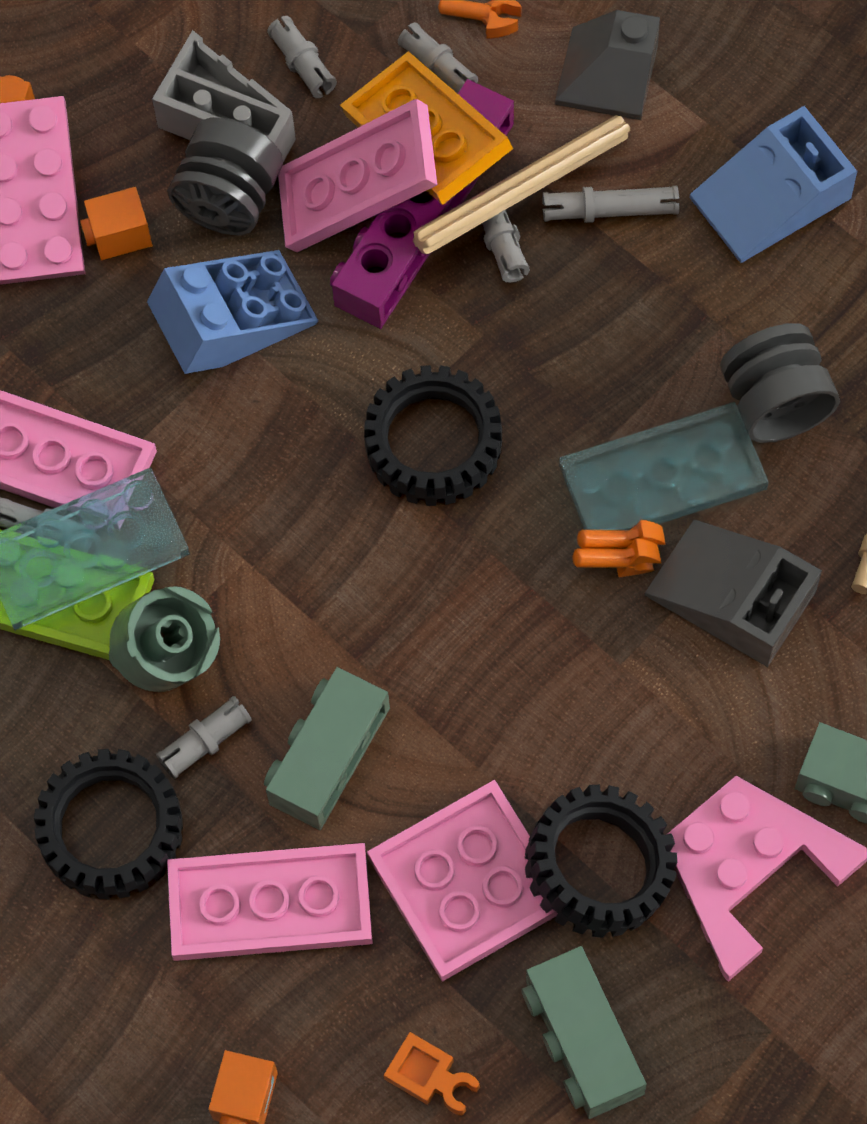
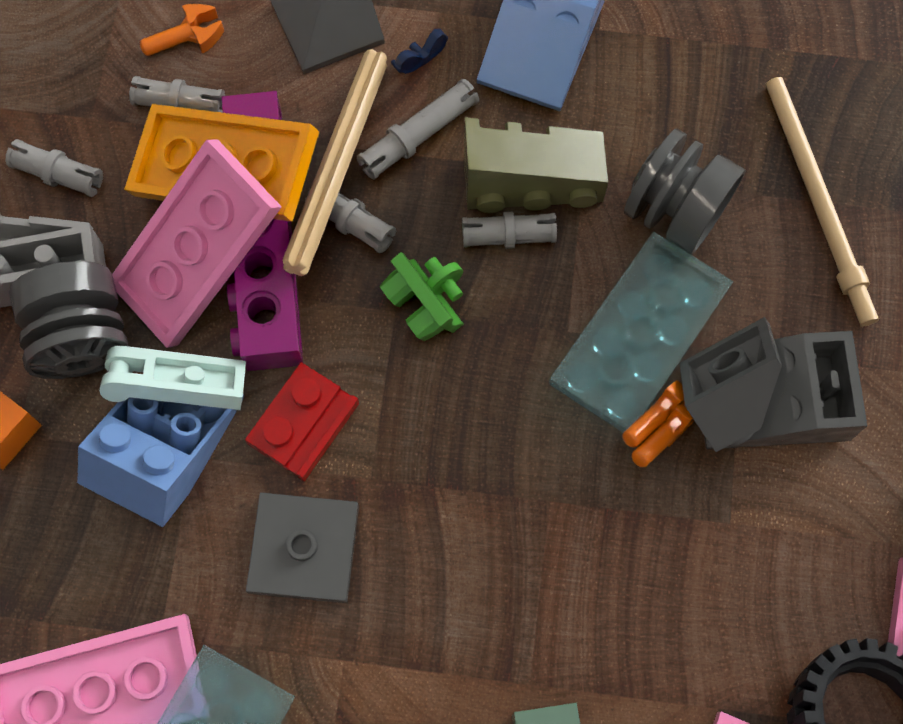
camera: 40 degrees left, 5 degrees up
(271, 267) = (172, 377): none -> light aqua plate
(276, 459) = (303, 548): none -> dark grey plate
(345, 368) = (302, 421): none -> red plate
(437, 386) = (421, 375): black tyre -> none
(521, 333) = (411, 280): none -> bright green hips
(621, 328) = (509, 229): none -> light grey pin
(648, 146) = (413, 59): none -> dark blue piece
(673, 290) = (532, 168): none -> wedge
(688, 550) = (732, 384): none -> dark grey slope

